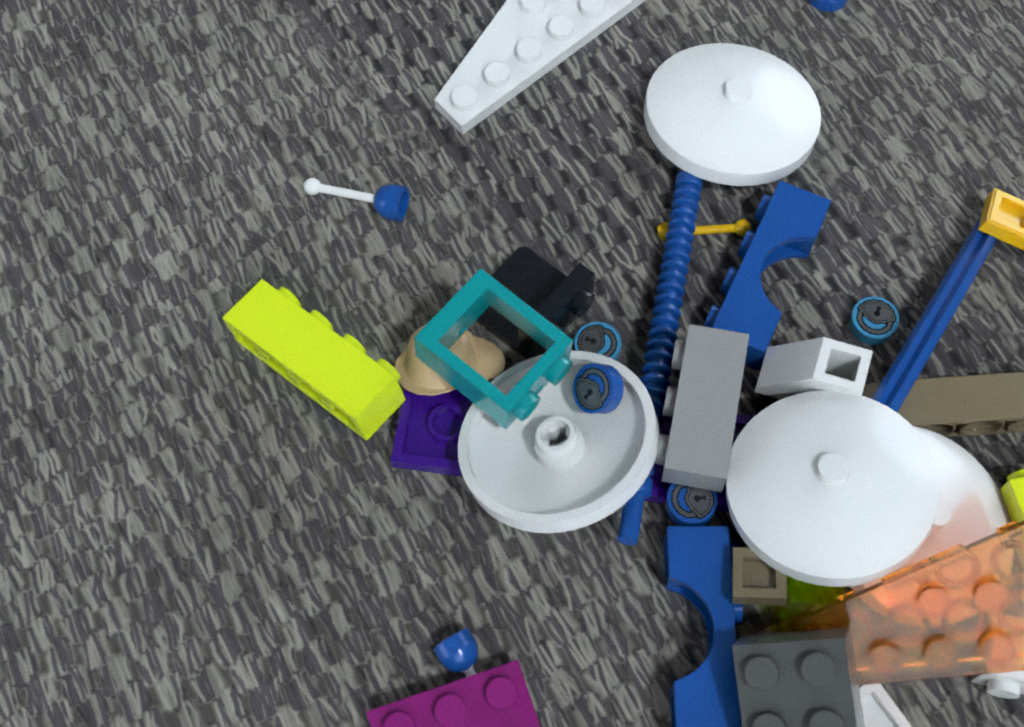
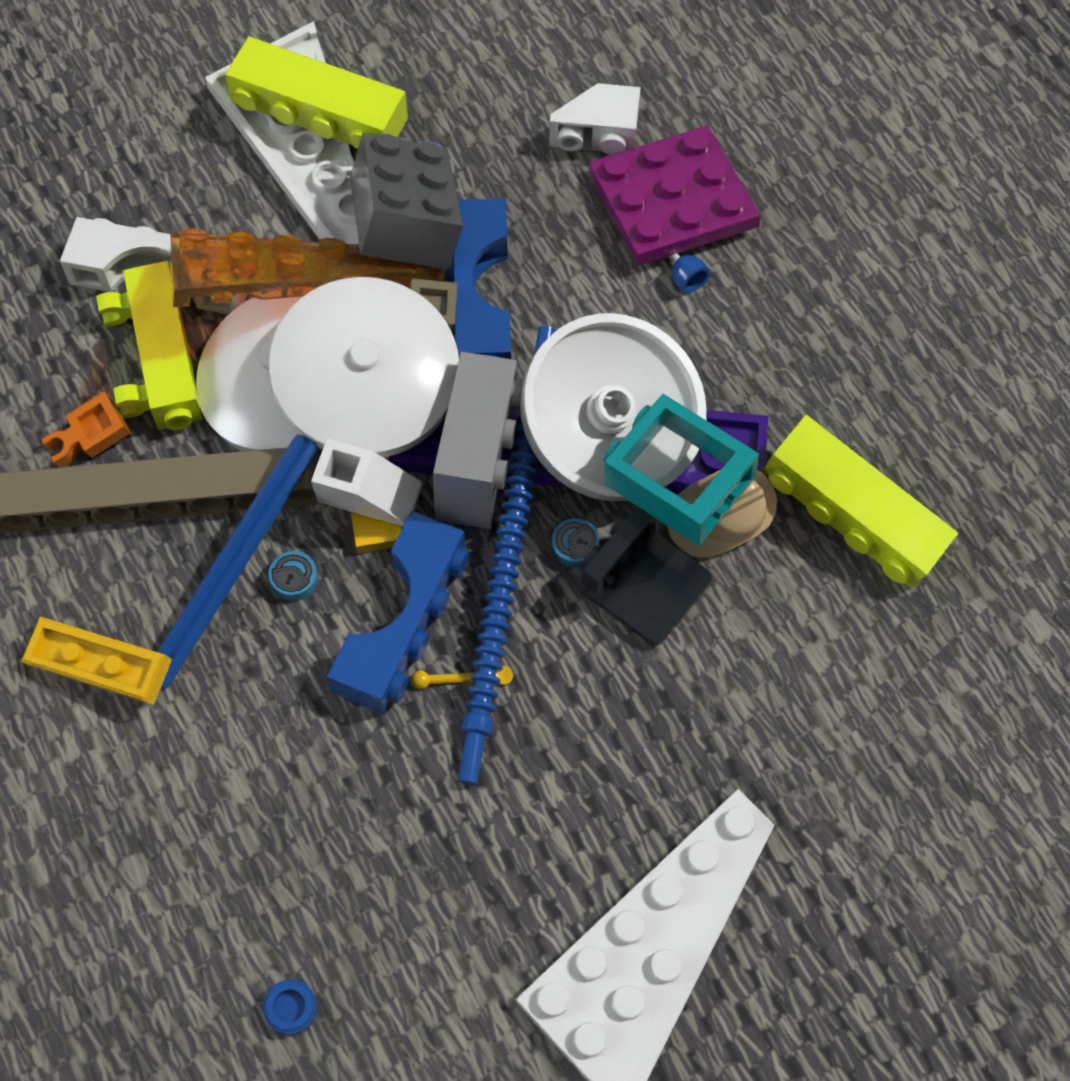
camera: 175 degrees right, 0 degrees up
(389, 200) = (809, 693): blue hinge -> none
(598, 388) = (577, 442): tile -> none
(731, 114) = (425, 809): white dish -> none

